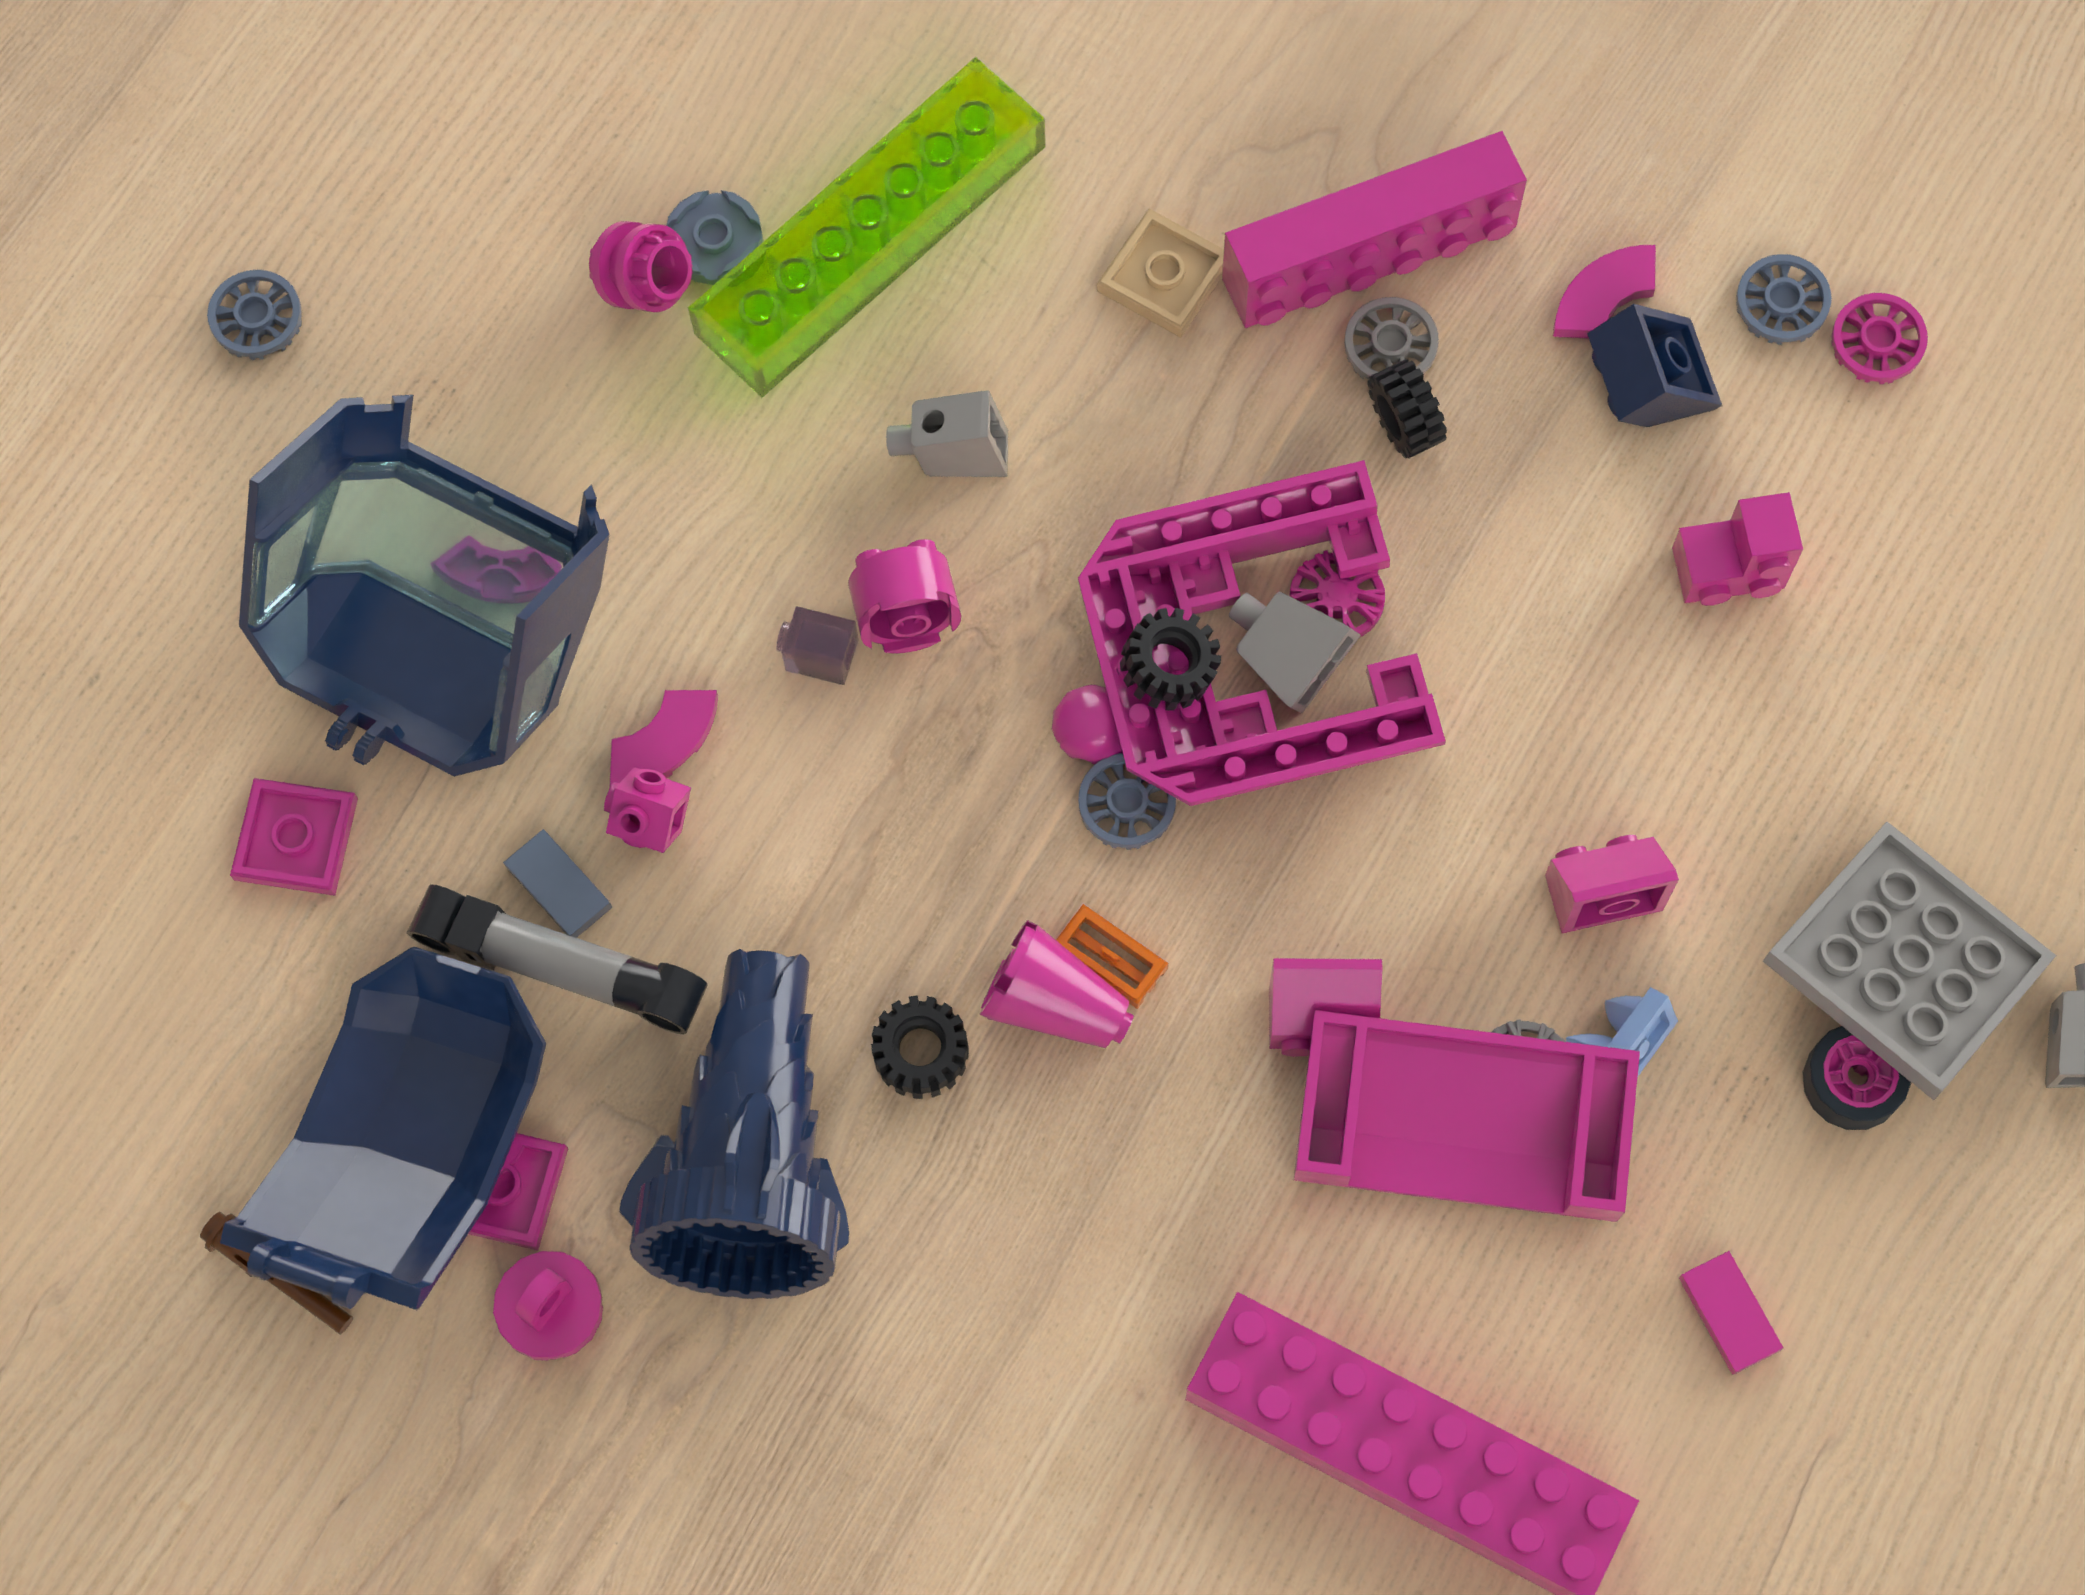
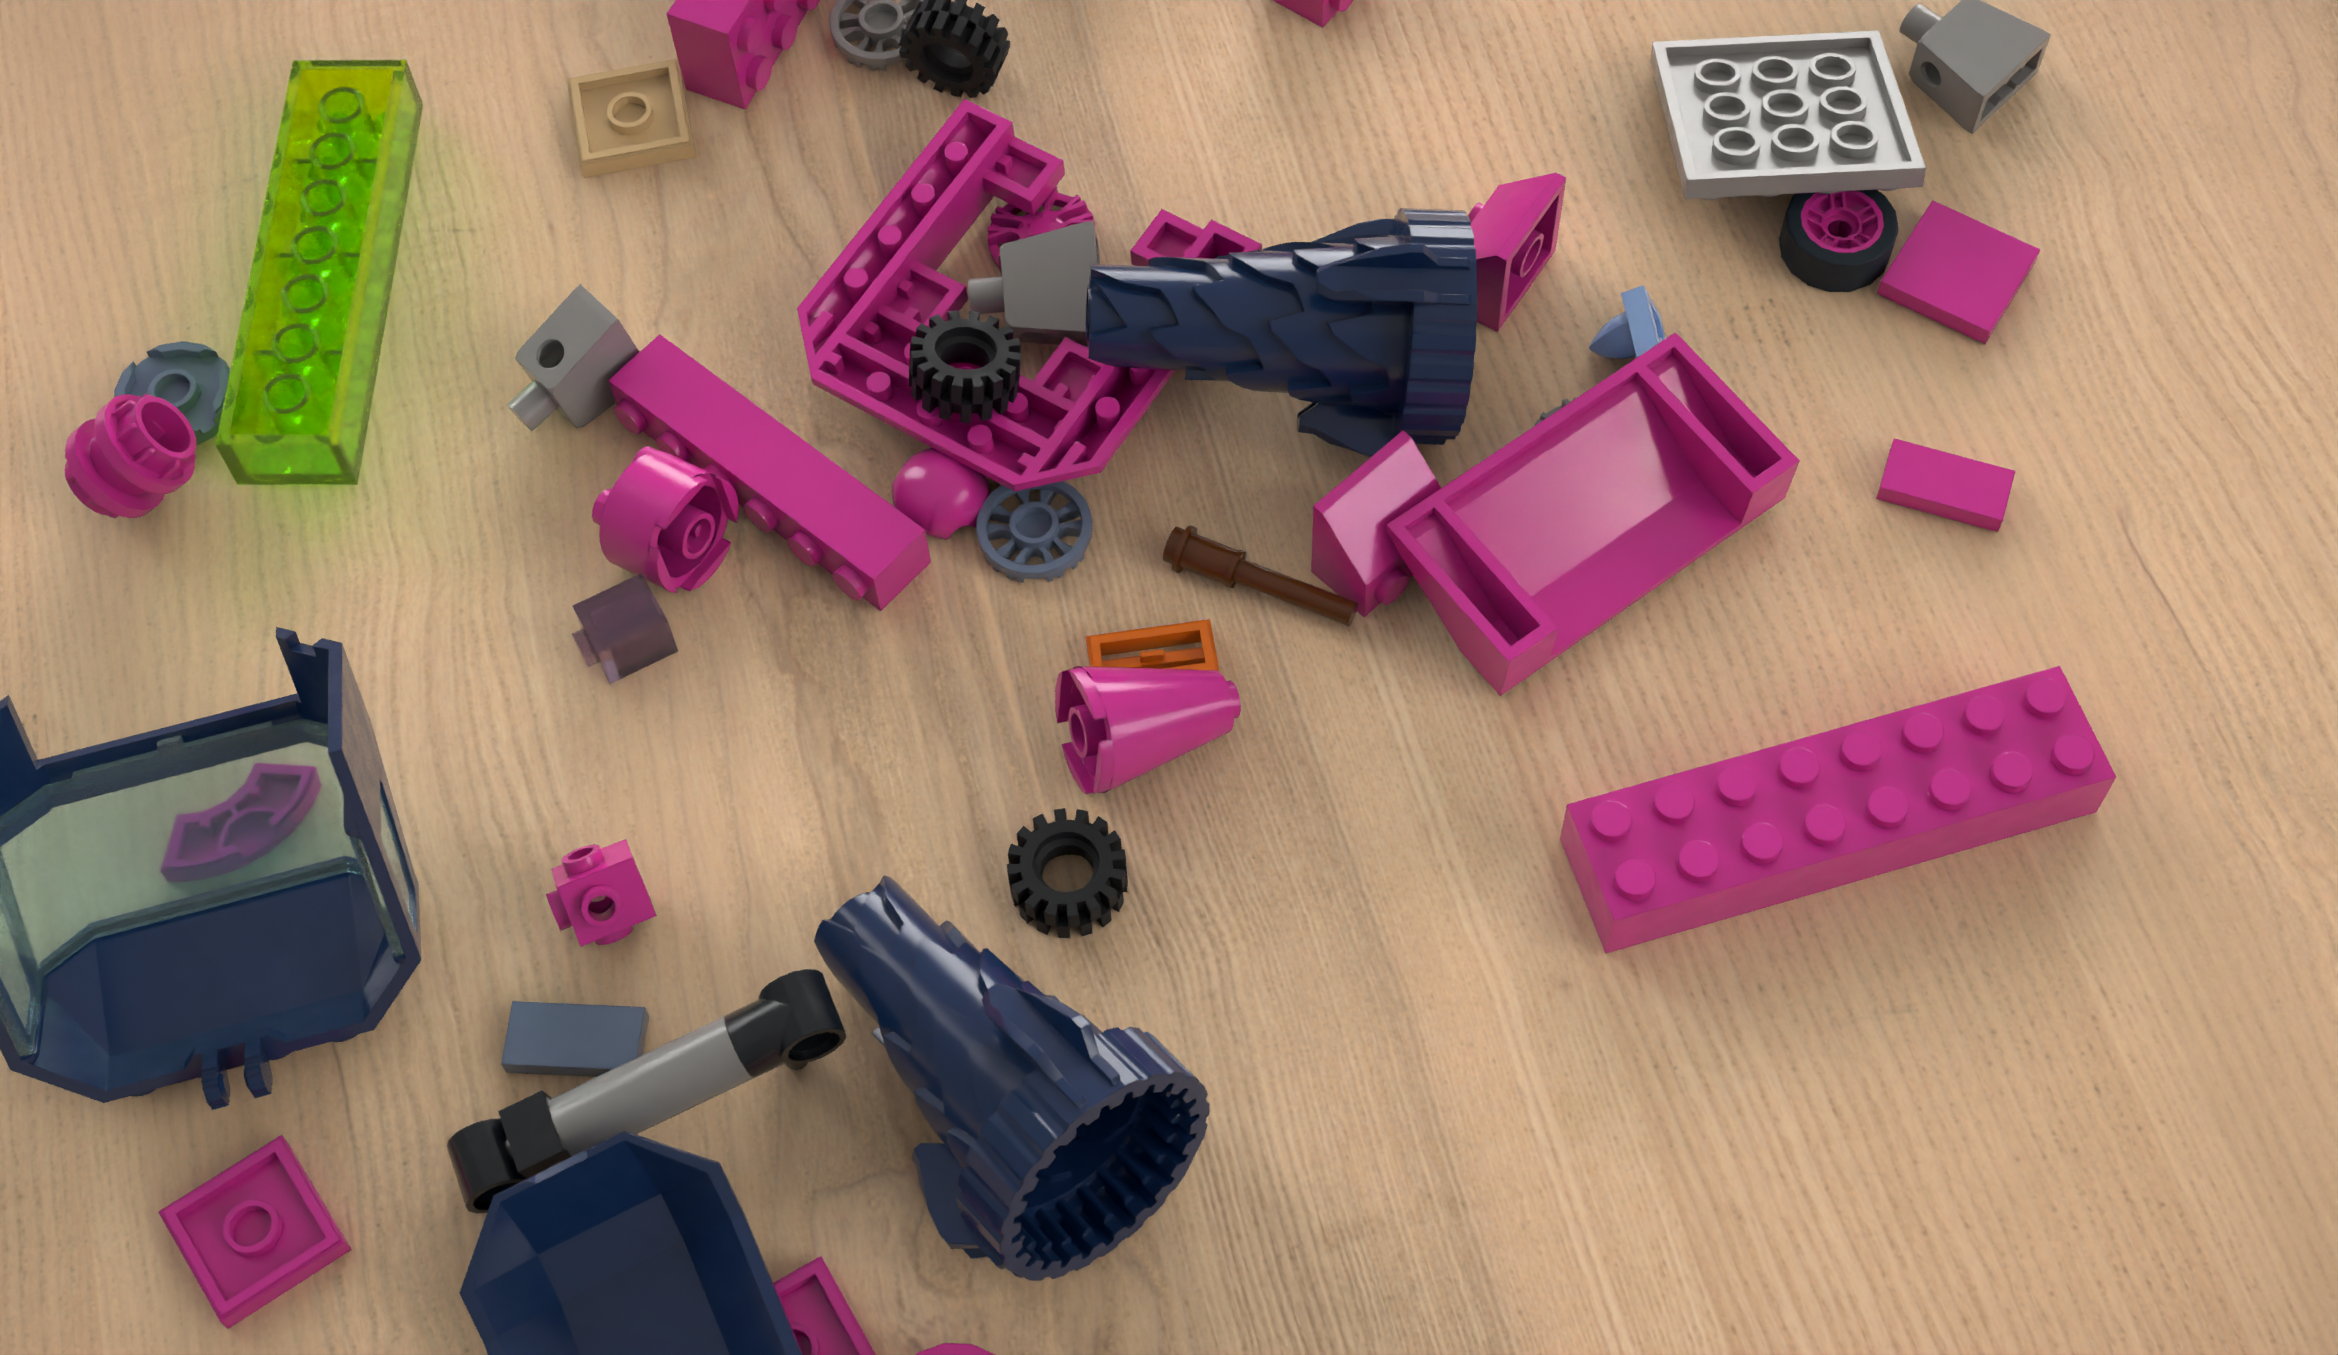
camera: 45 degrees left, 10 degrees down
(670, 736) = (556, 821): dark pink tile -> none
(1002, 616) = (775, 473): none -> dark pink brick
(1216, 938) = (1229, 566): none -> reddish brown pin
(1425, 851) = (1355, 322): none -> dark blue cone
(1913, 1177) = (1958, 271): none -> dark pink tile

